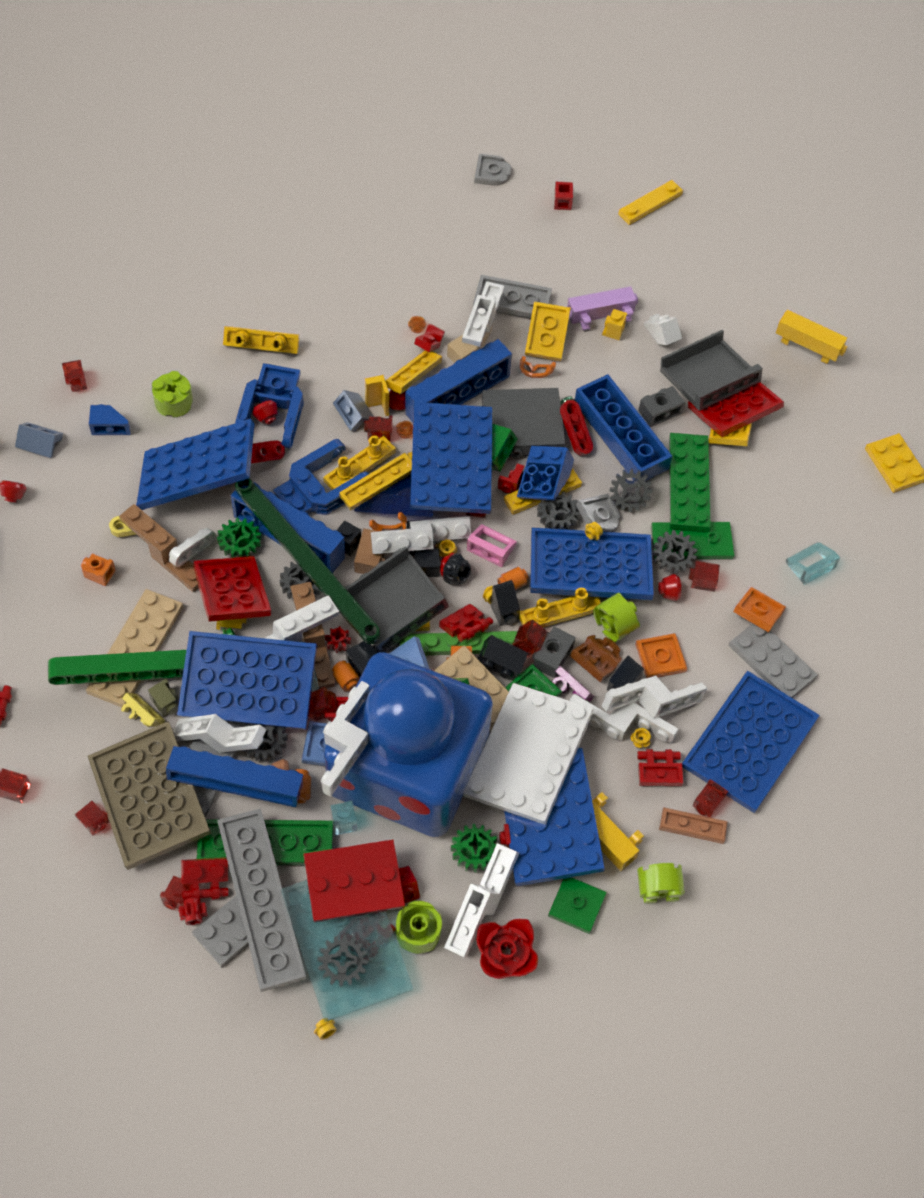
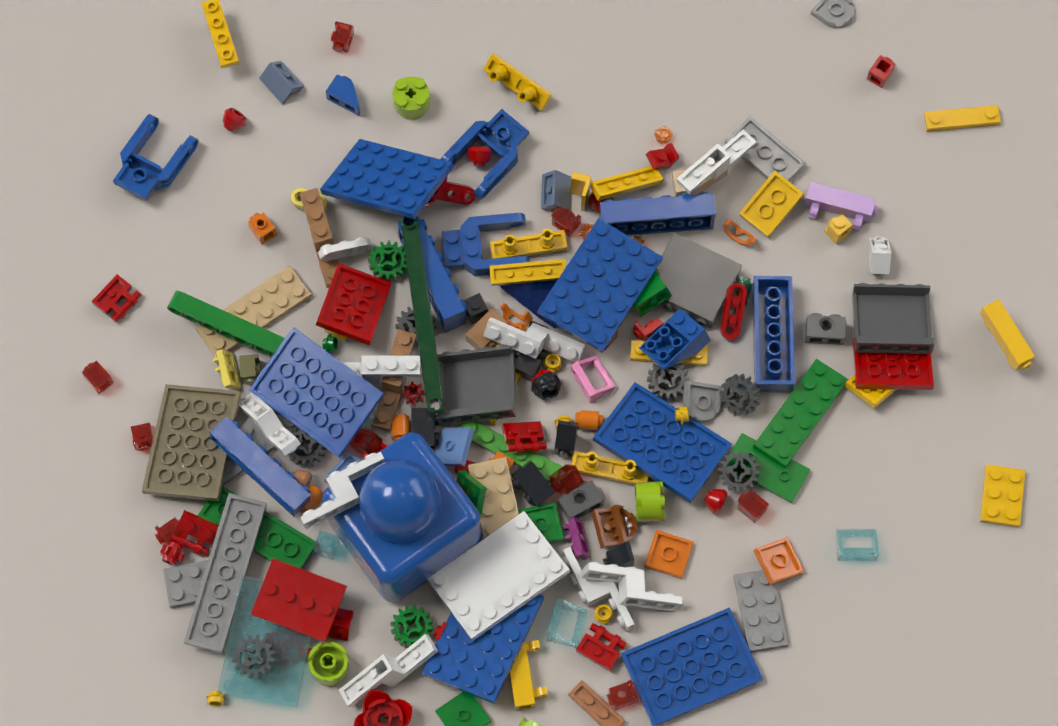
camera: 35 degrees right, 10 degrees up
(604, 768) = (555, 621): none -> clear light blue tile

